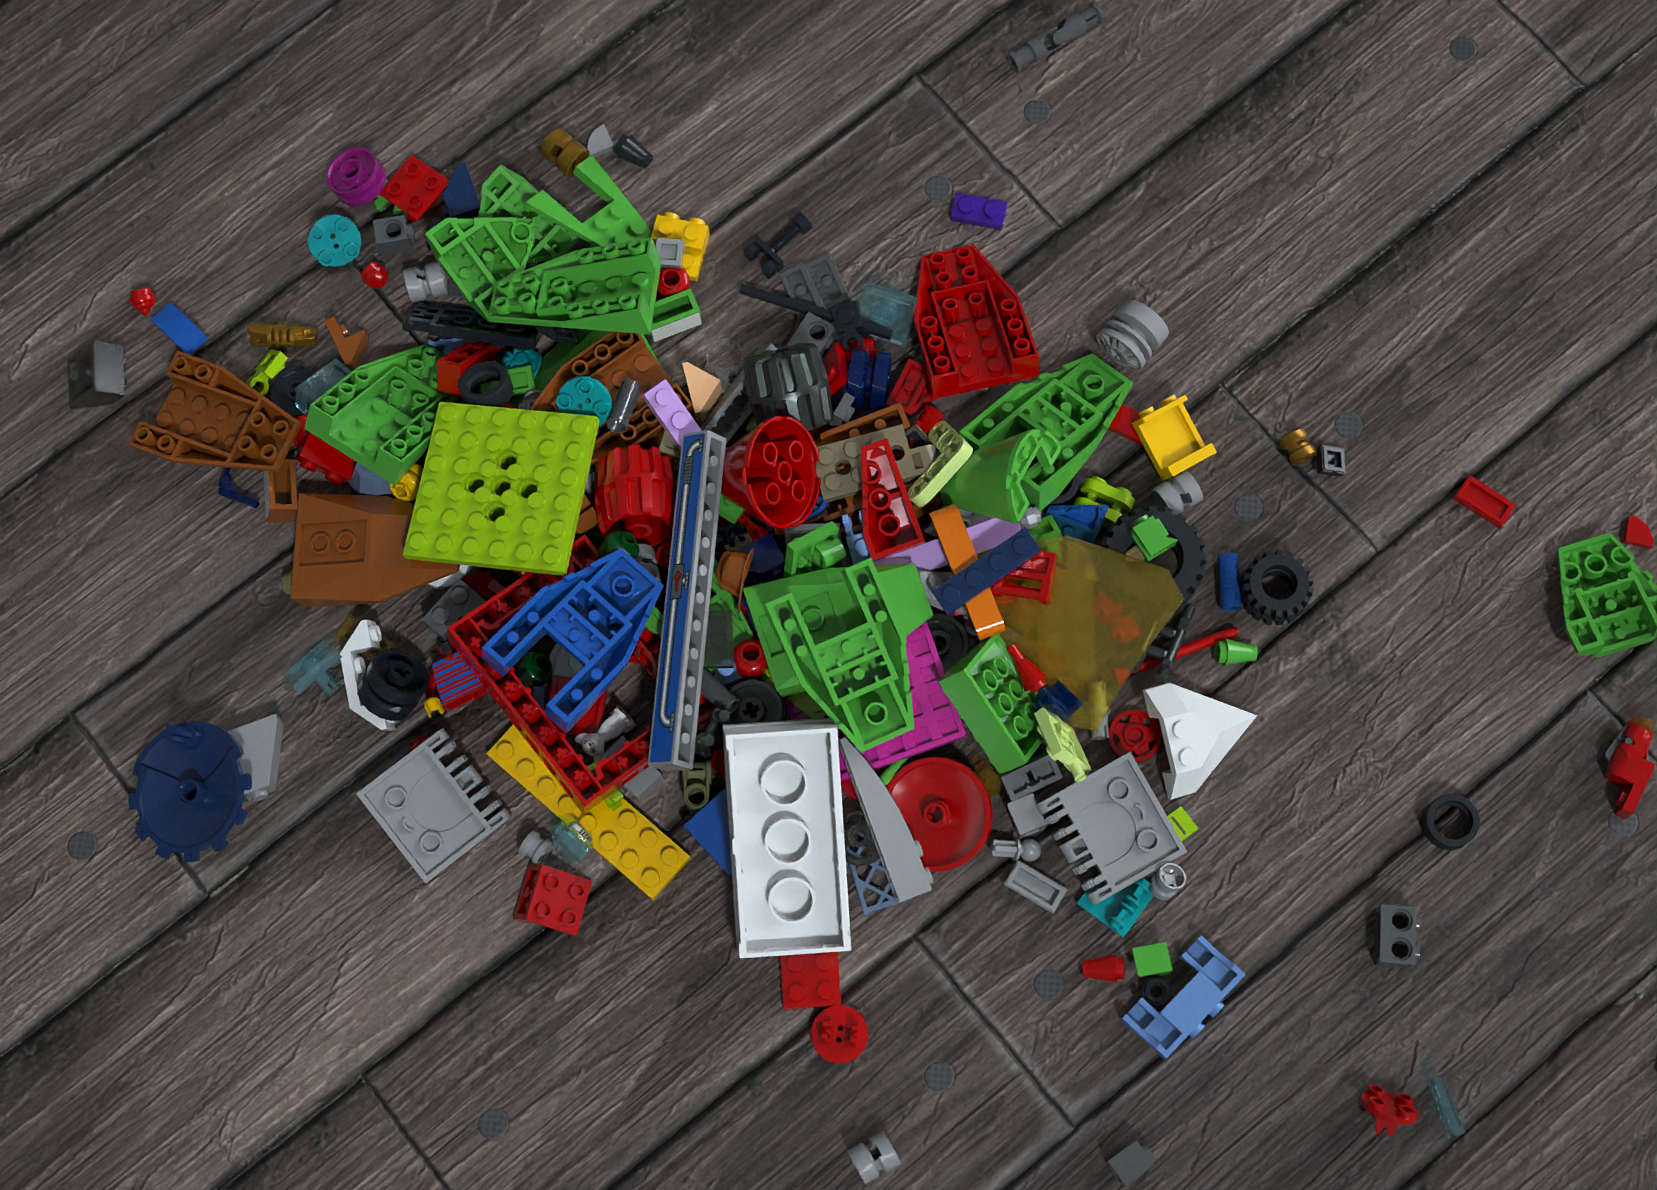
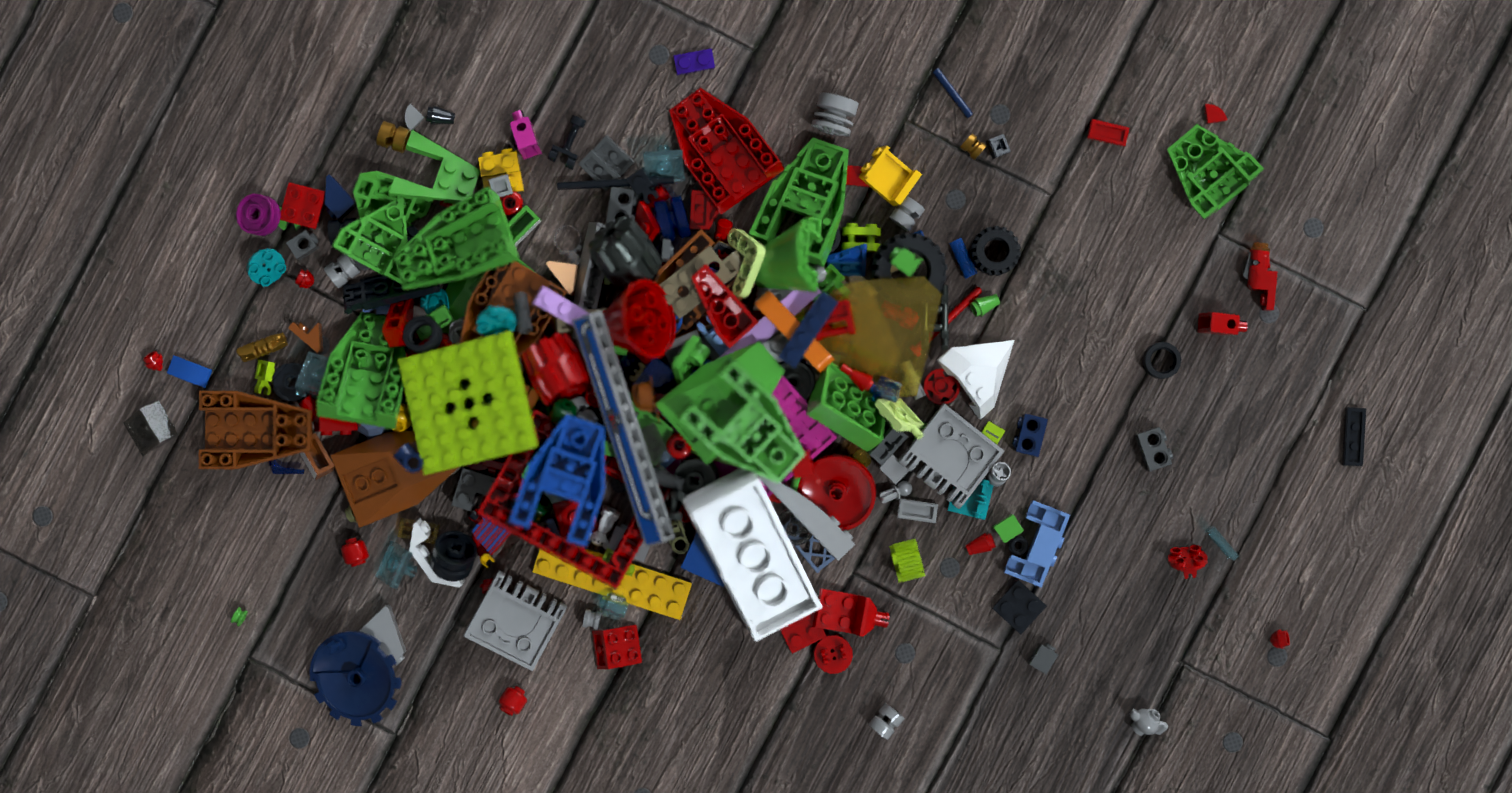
camera: 30 degrees left, 15 degrees up
(84, 653) = (239, 616): none -> bright green bush
(270, 632) = (354, 552): none -> red head
(380, 912) = (512, 700): none -> red head
(392, 522) = (403, 456): none -> dark blue piece
(727, 205) = (524, 135): none -> dark pink torso
(882, 983) = (848, 613): none -> red plate
(905, 749) = (804, 466): none -> red brick
(995, 944) = (907, 560): none -> lime brick
(1124, 1078) = (1019, 606): none -> black plate
(1235, 850) = (1035, 436): none -> dark blue brick
(1296, 374) = (953, 93): none -> dark blue bar
(1551, 804) = (1221, 324): none -> red torso

